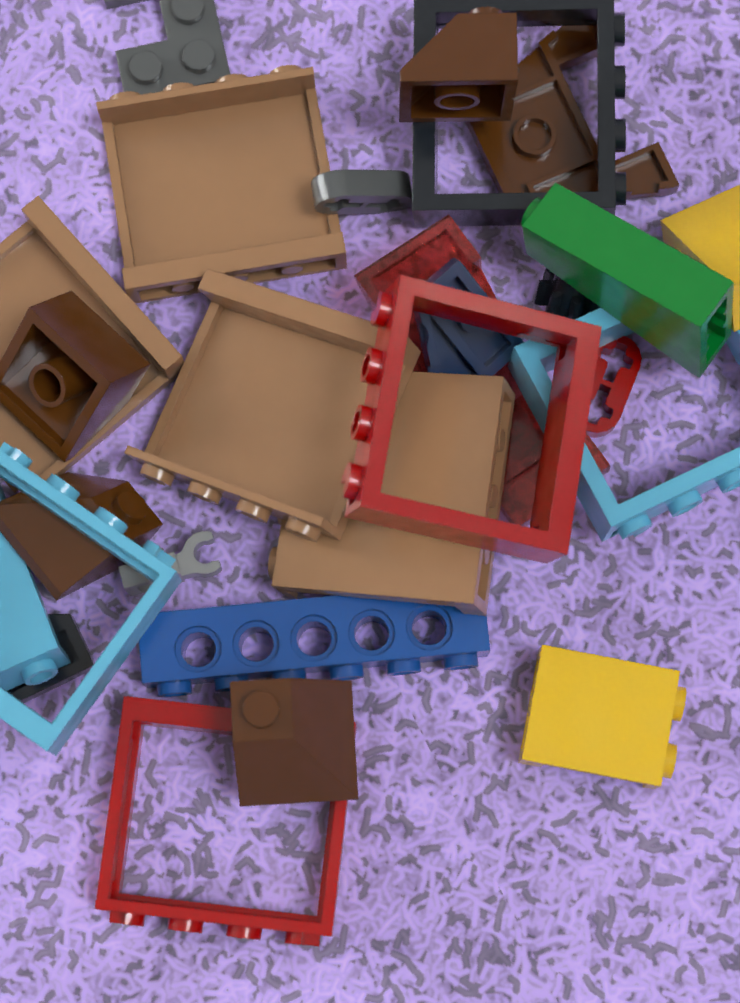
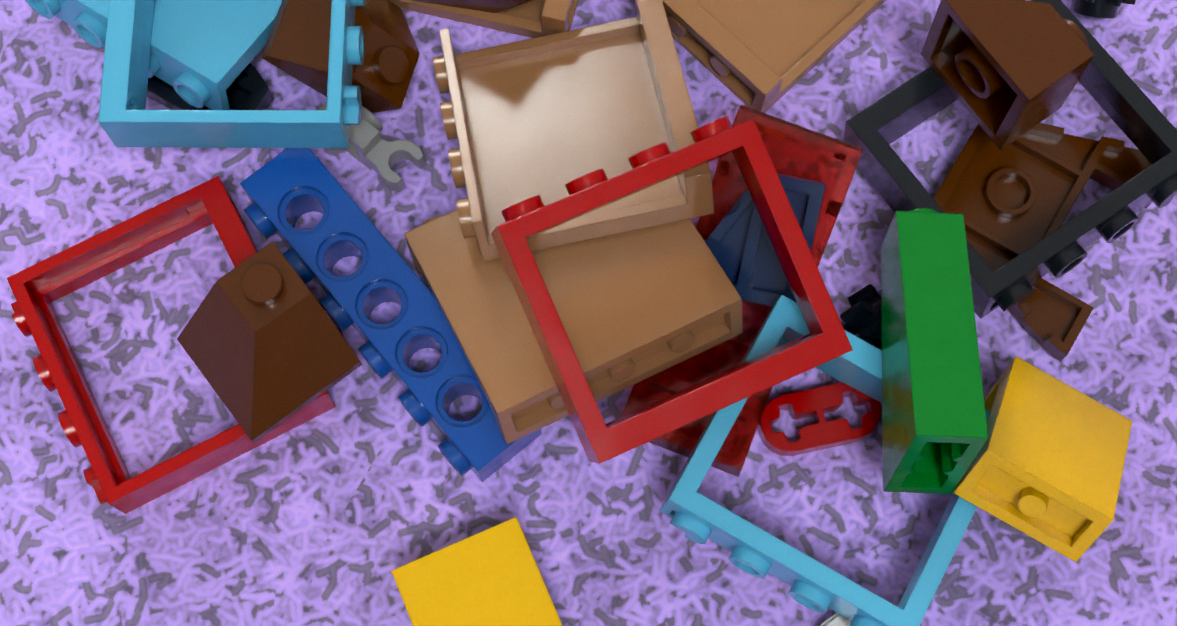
camera: 55 degrees right, 5 degrees down
(361, 191) = (832, 71): dark grey beam -> none

